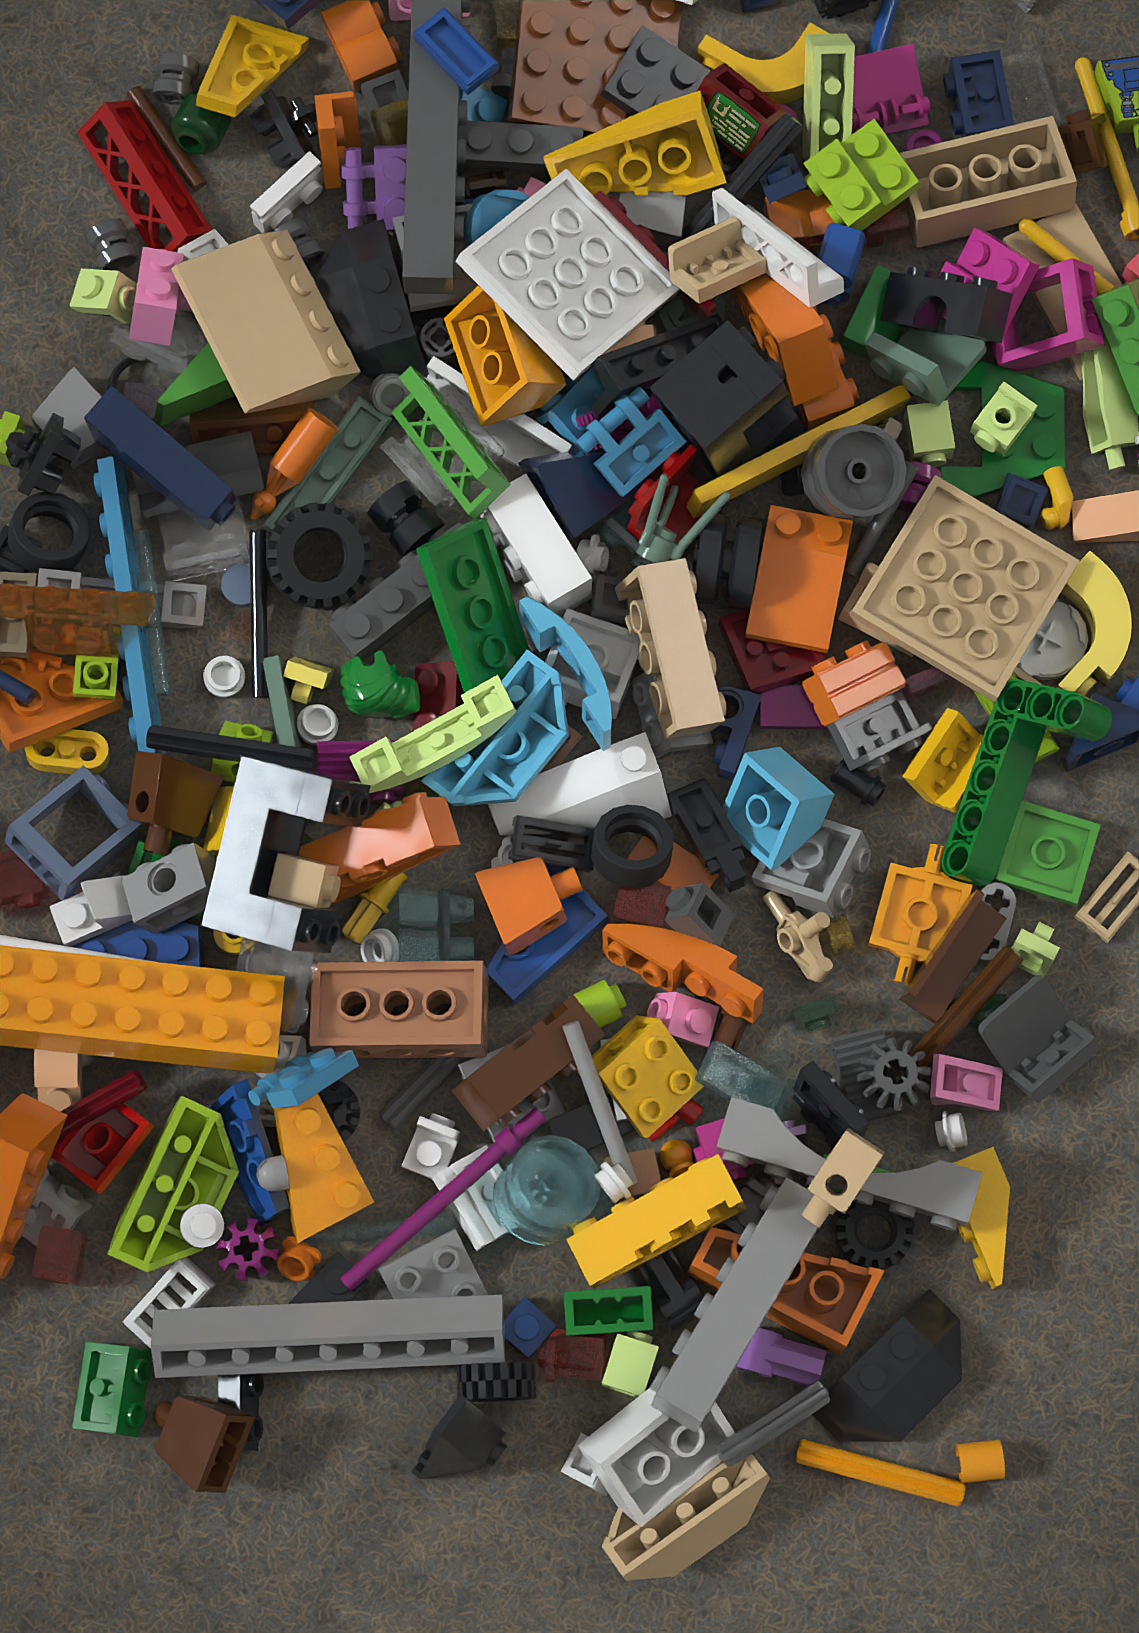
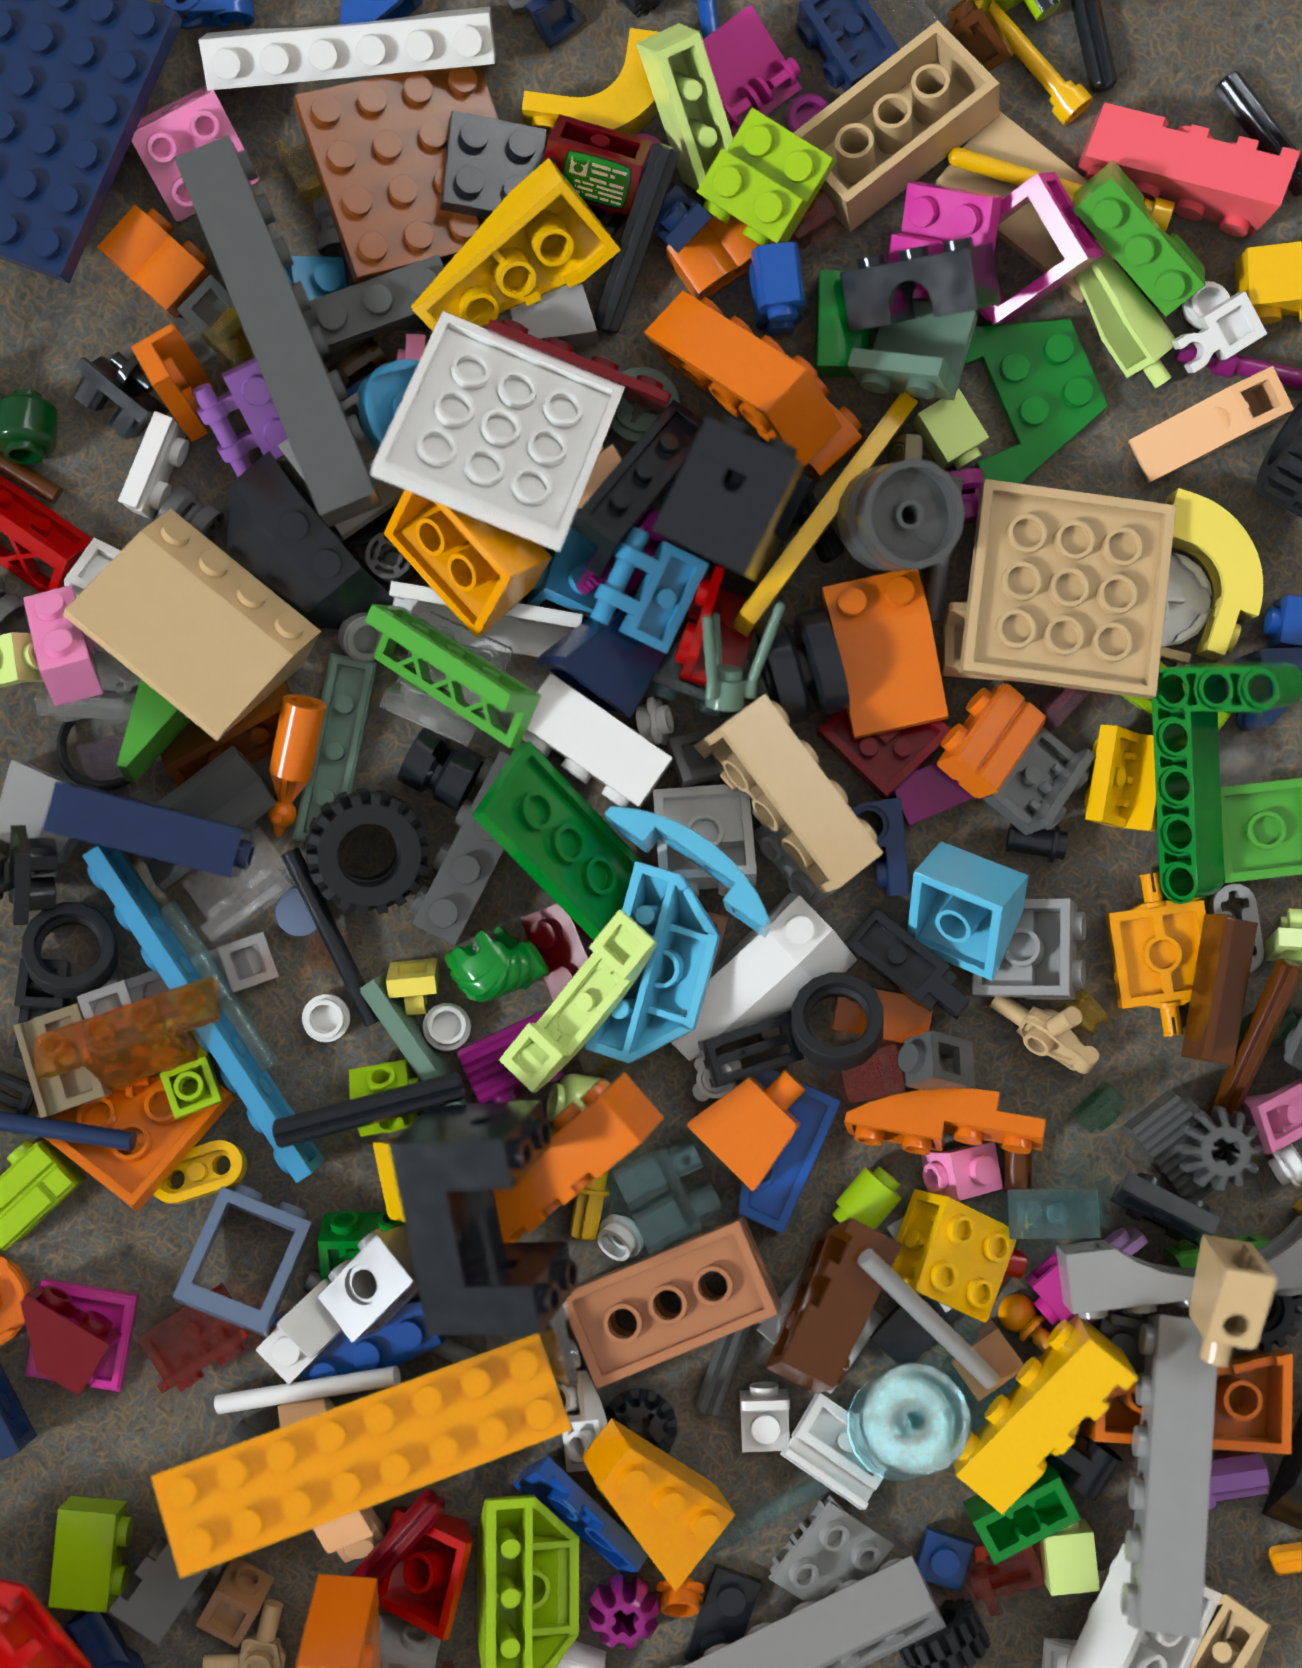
camera: 25 degrees left, 10 degrees up
(170, 799) = (330, 1188): reddish brown torso -> none
(202, 1225) = (568, 1617): white plate -> none
(246, 64) = (43, 340): yellow wing -> none
(273, 1174) = (620, 1543): light grey hinge -> none
(303, 1078) = (608, 1435): dark azure plate -> none
(304, 881) = (515, 1231): tan brick -> none
(456, 51) = (262, 229): blue tile -> none
(507, 1142) = (846, 1399): magenta bar -> none
(614, 1181) = (980, 1395): white plate -> none
(714, 261) = (650, 347): tan bracket -> none
(773, 1423) = (1246, 1563): dark grey axle -> none
(785, 258) = (710, 305): white fence -> none
(1011, 405) = (1031, 365): yellowish green brick -> none
(1020, 499) = (1076, 461): dark blue tile -> none
(1062, 499) = (1120, 444): yellow arm -> none

